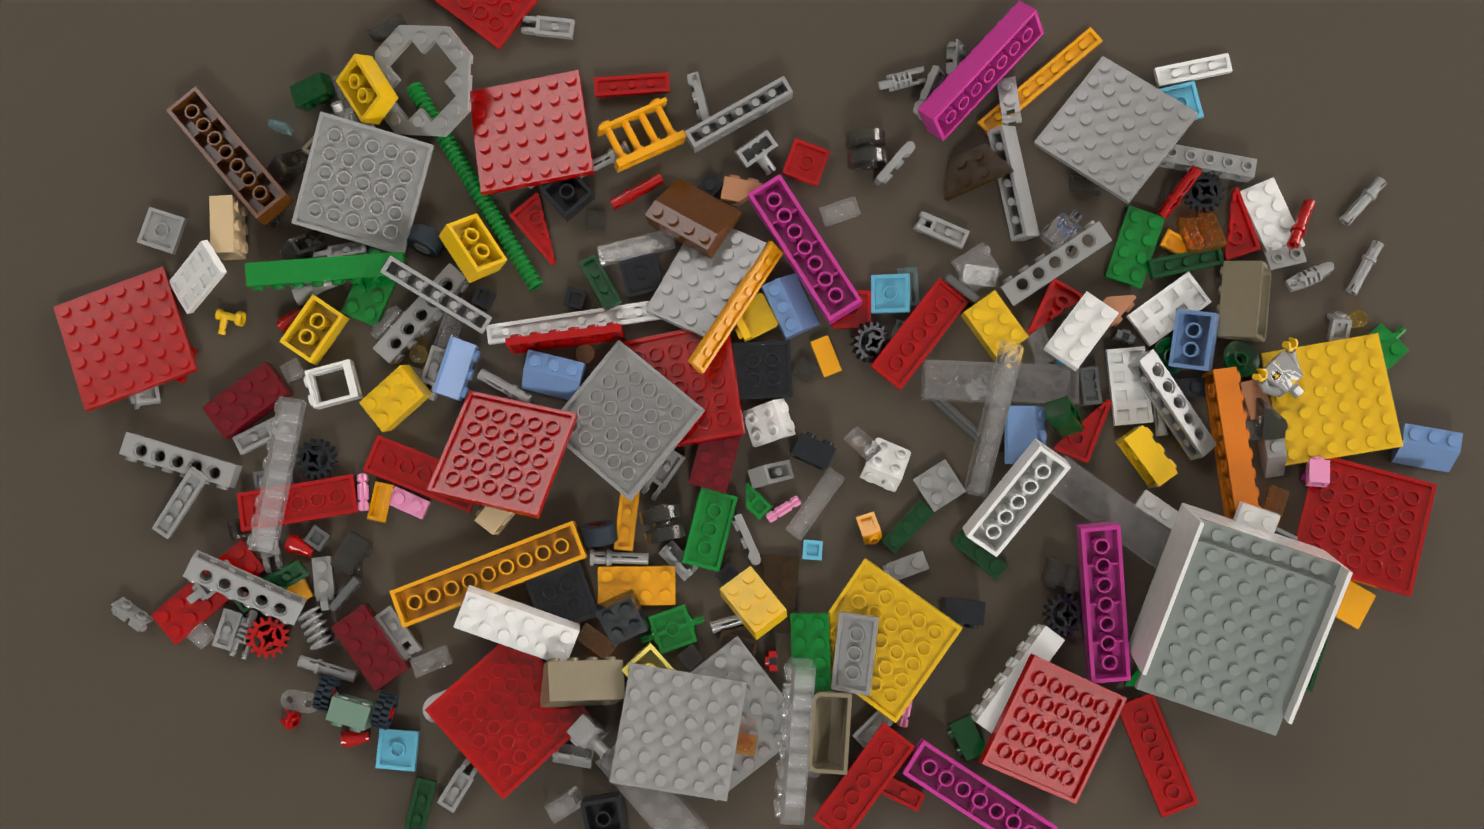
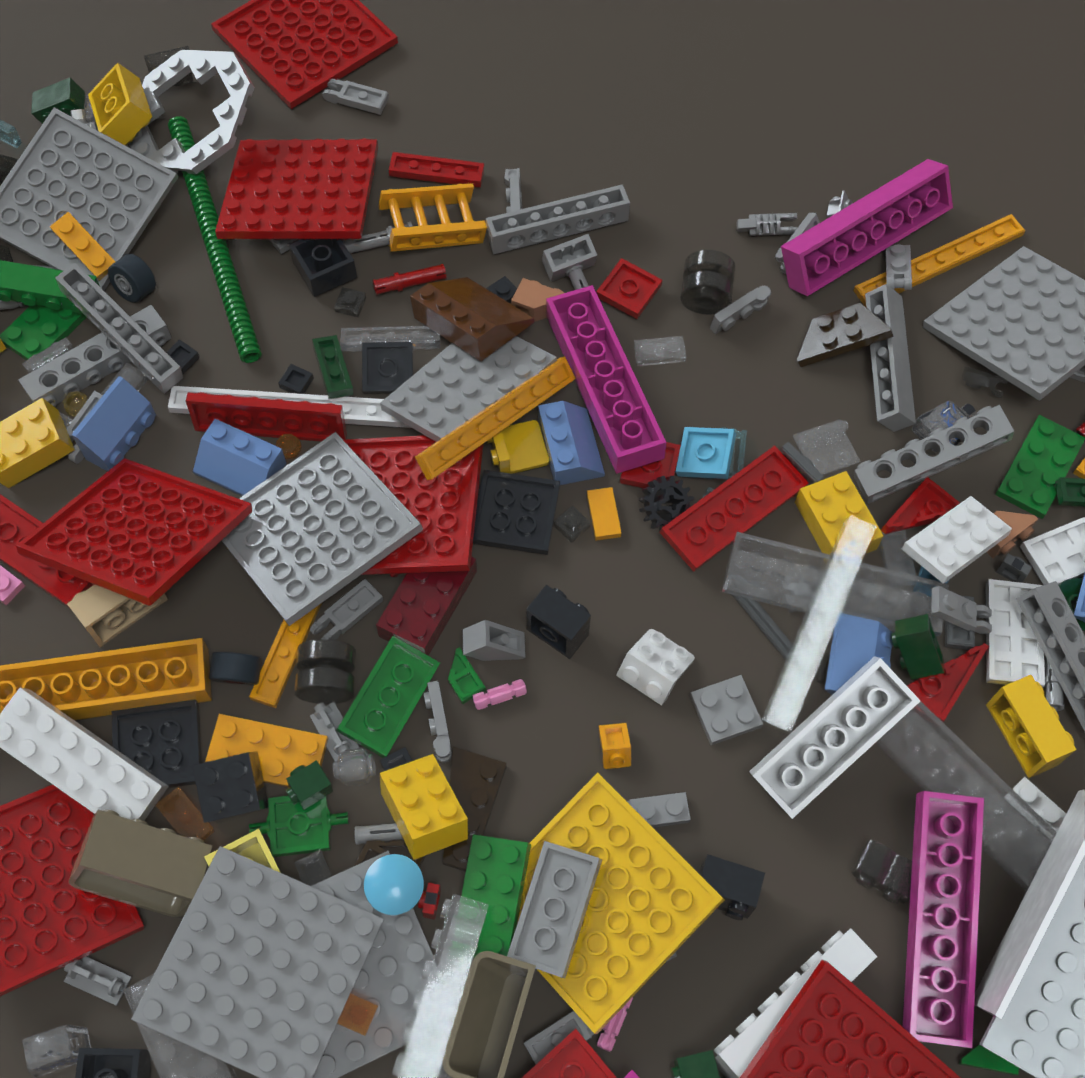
camera: 10 degrees right, 20 degrees down
(381, 223) = (83, 245): none -> light orange plate
(472, 247) = (185, 293): yellow brick -> none
(511, 390) = (168, 460): light grey pin -> none
(532, 222) = (270, 288): red wing -> none
(589, 734) = (127, 945): light grey brick -> none
(608, 557) = (240, 706): light grey pin -> none
(673, 605) = (308, 785): none -> dark green brick
(699, 584) = (354, 767): none -> clear head
(747, 659) = (393, 884): none -> medium azure dish
(769, 422) = (507, 576): white bracket -> none
(812, 549) = (527, 757): medium azure plate -> none
(815, 503) = (545, 697): clear plate -> none
(862, 443) = (629, 627): clear plate -> none
(907, 527) = (670, 756): dark green plate -> none
(941, 230) = (787, 395): light grey plate -> none
(978, 275) = (827, 450): clear plate -> none
(988, 562) = (767, 816): dark green plate -> none
(1062, 604) = (880, 927): black gear -> none
(1088, 383) = (960, 610): none -> light grey hinge

